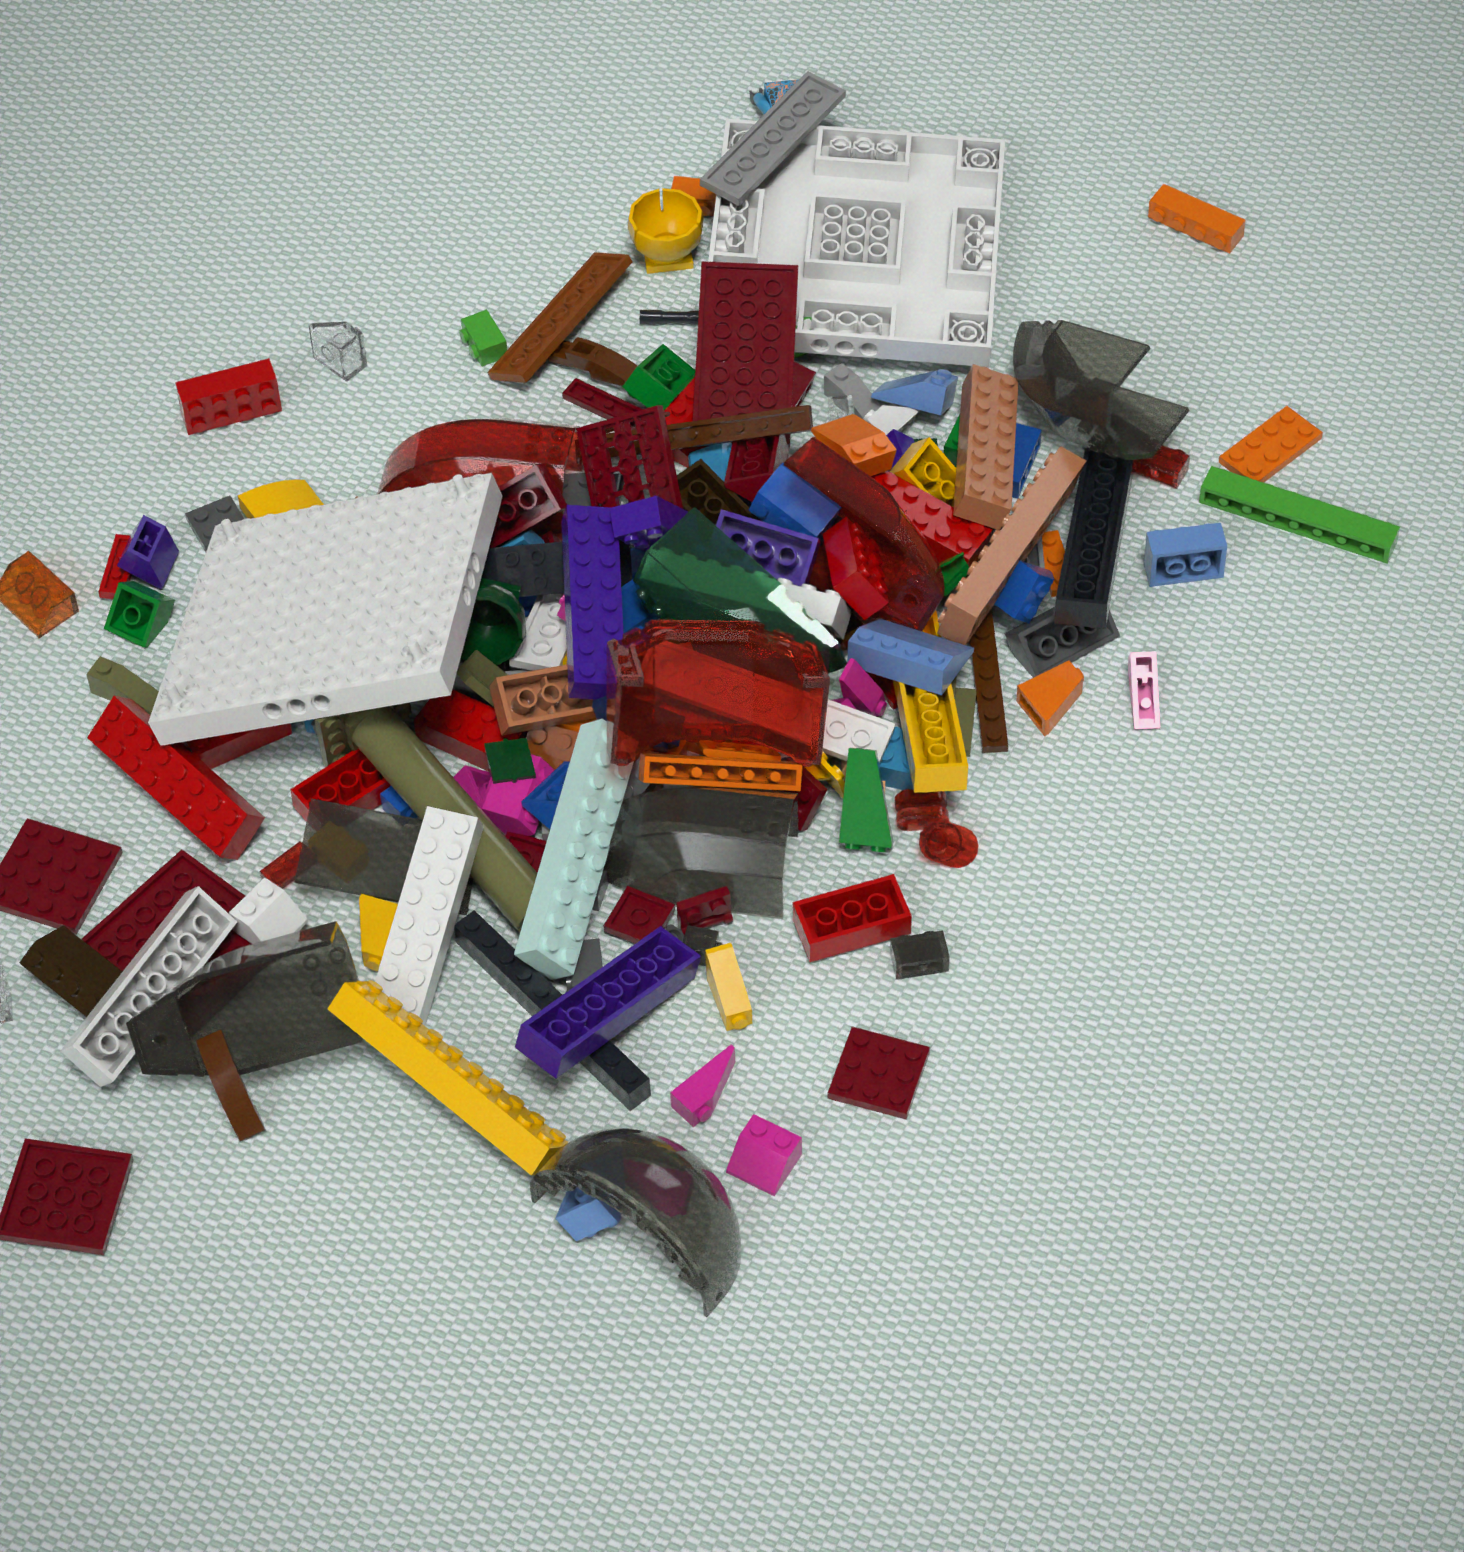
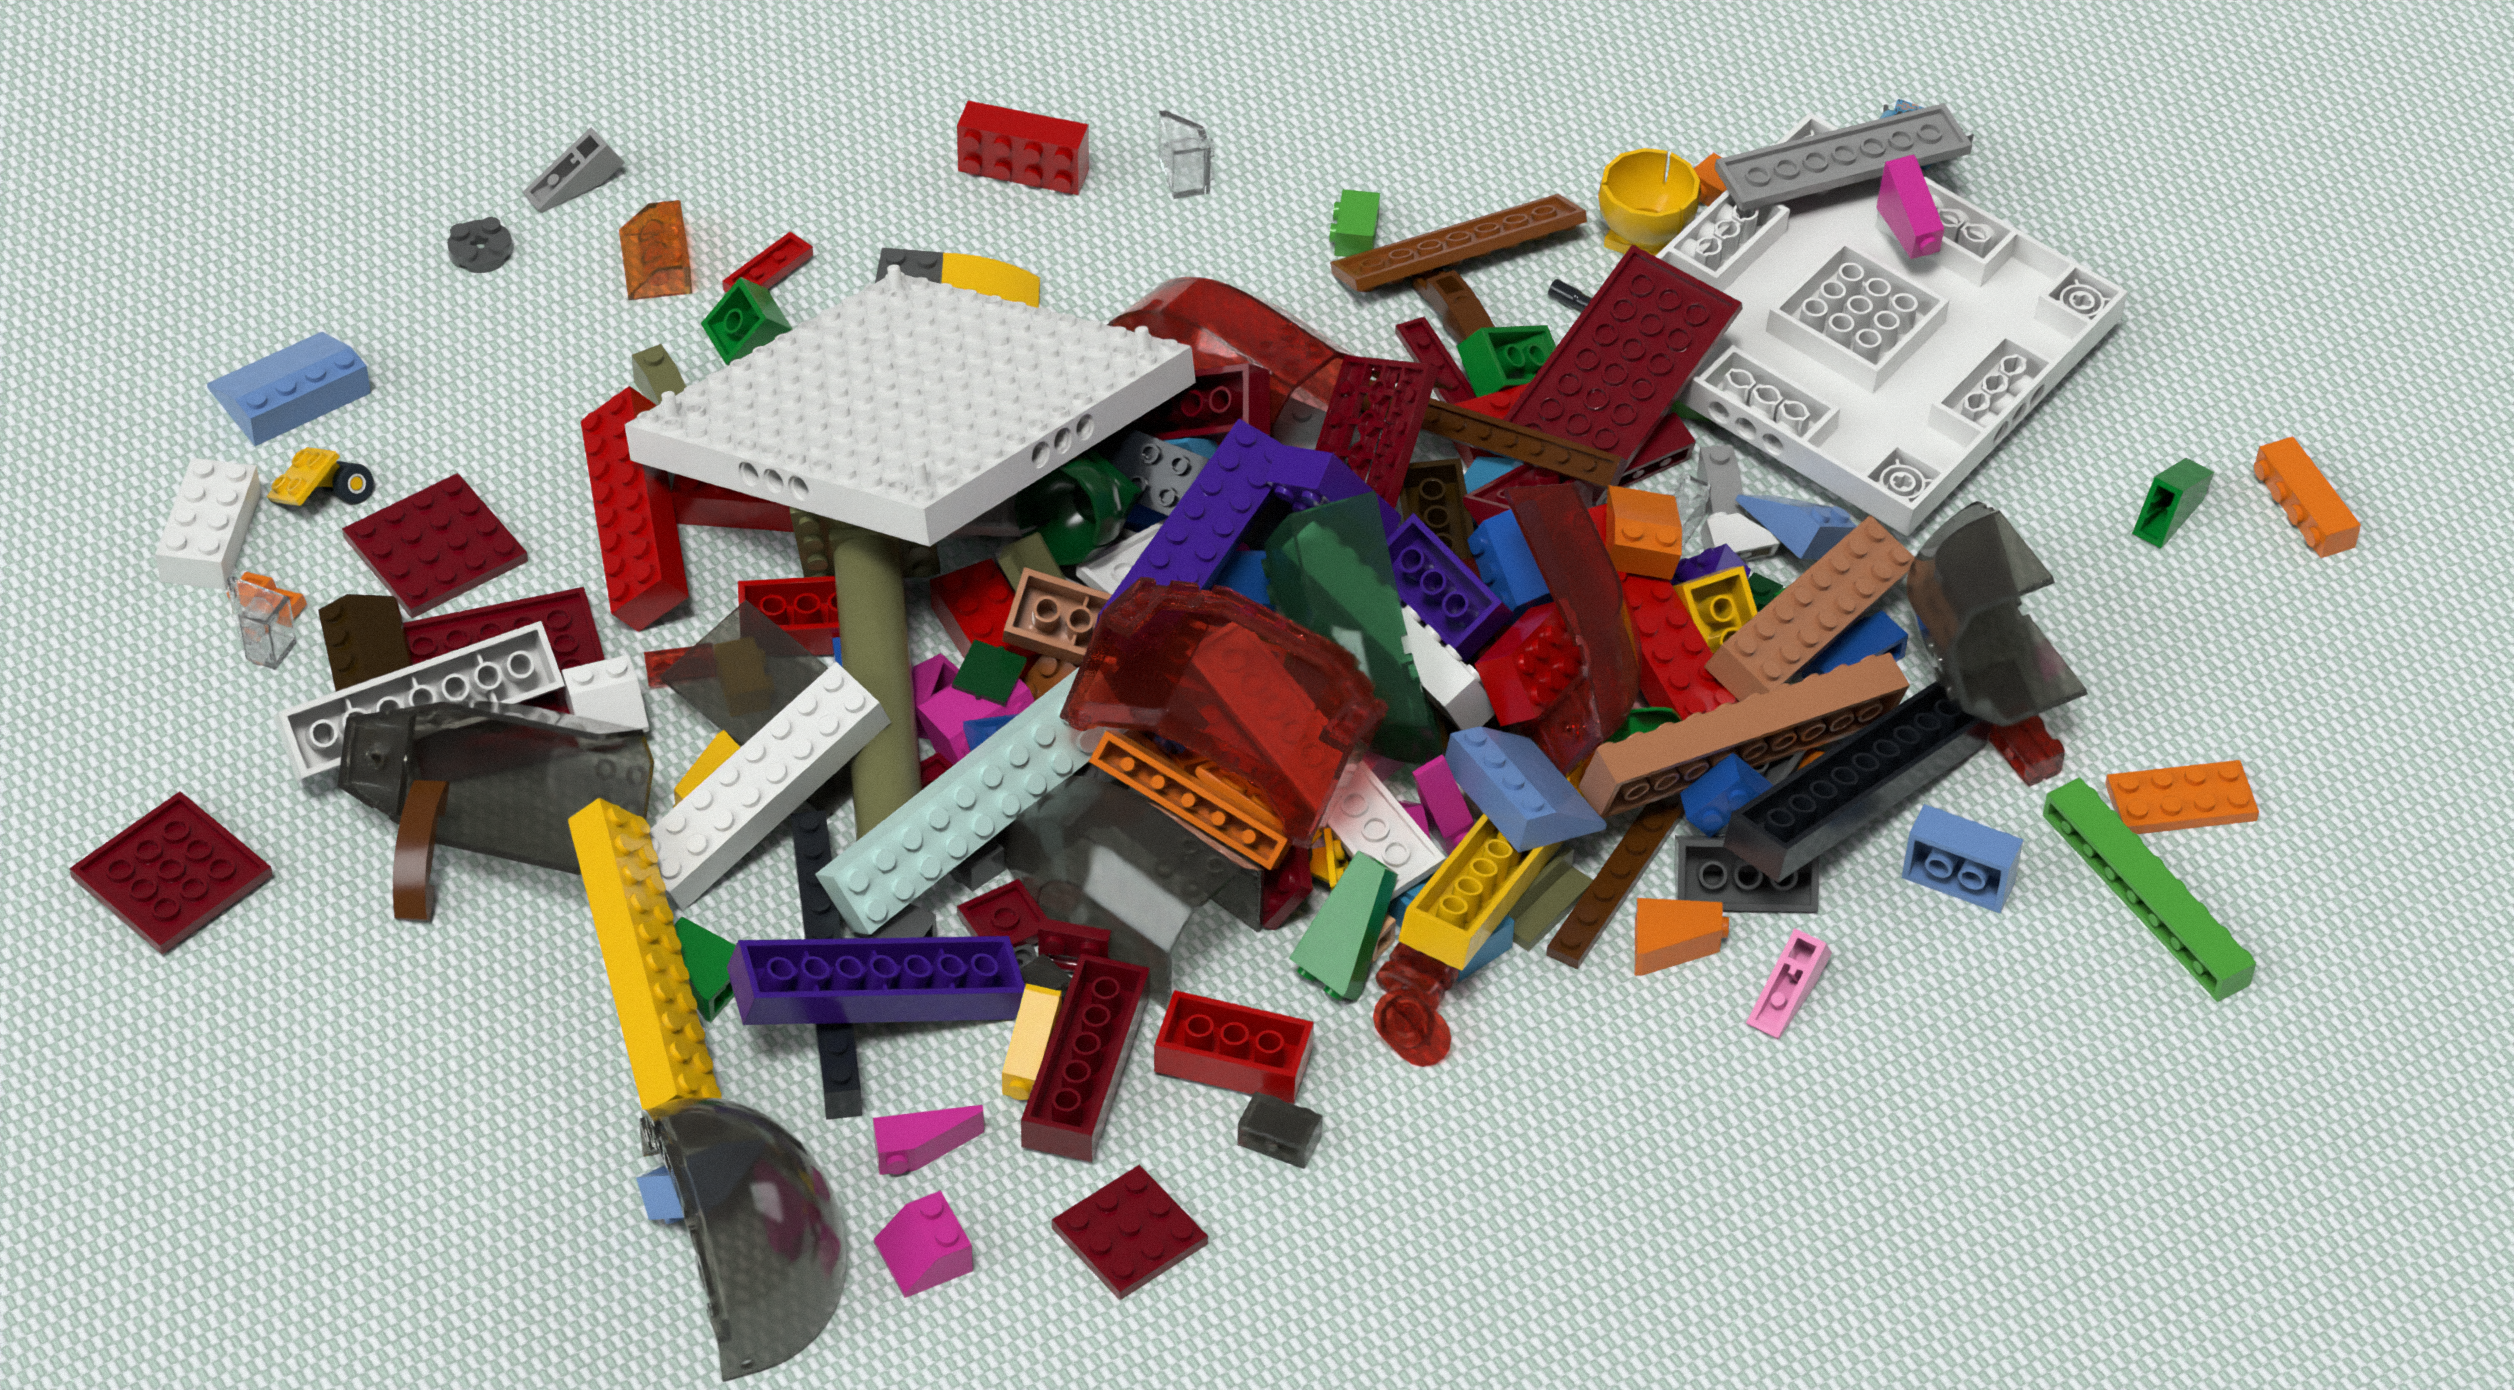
camera: 30 degrees right, 5 degrees down
(149, 552) = (804, 266): dark purple slope -> none
(482, 1048) = (706, 961): none -> green slope
(770, 977) = (1085, 1057): none -> dark red brick
(844, 151) = (1909, 207): none -> dark pink slope
(1123, 262) = (2172, 500): none -> green slope

